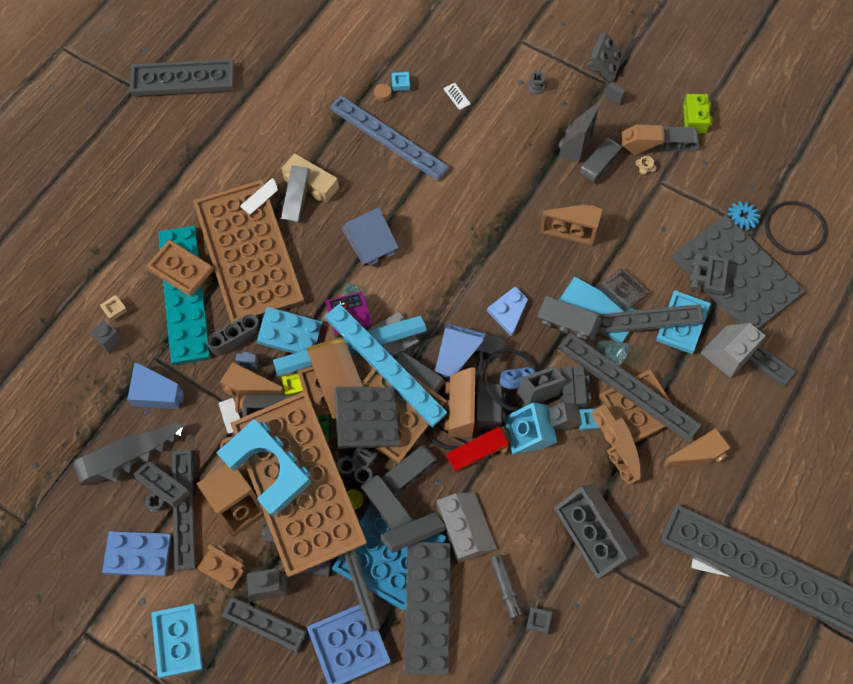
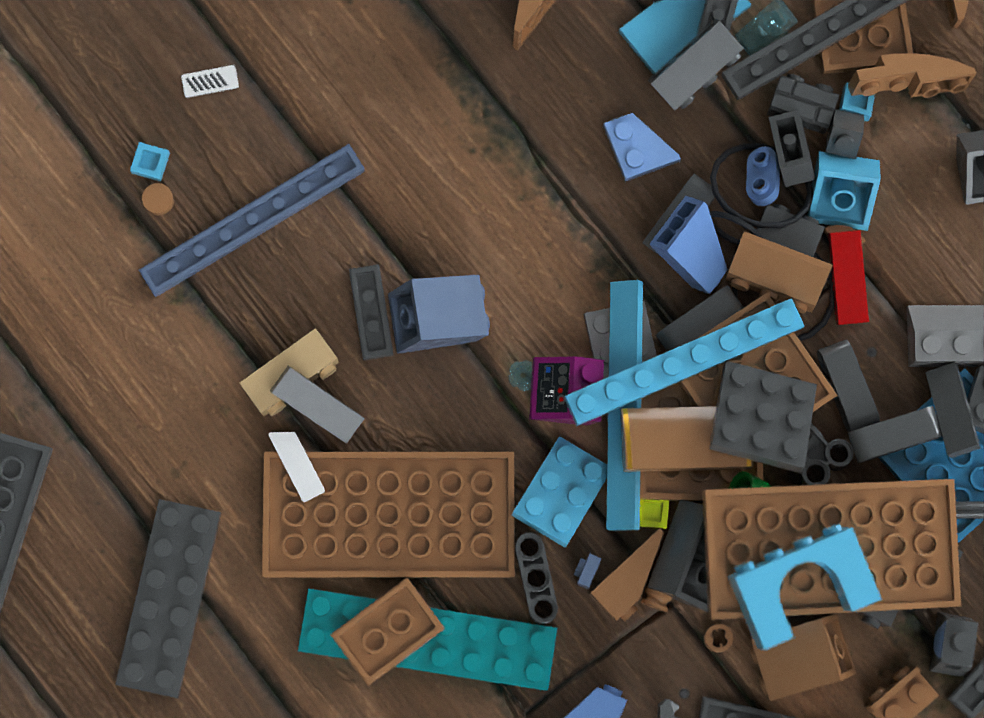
camera: 75 degrees left, 15 degrees up
(169, 165) = (168, 598): none -> dark grey plate
(228, 413) = (663, 624): white sticker -> none
(356, 498) = (861, 474): plate -> none
(359, 207) = (371, 312): none -> dark grey tile

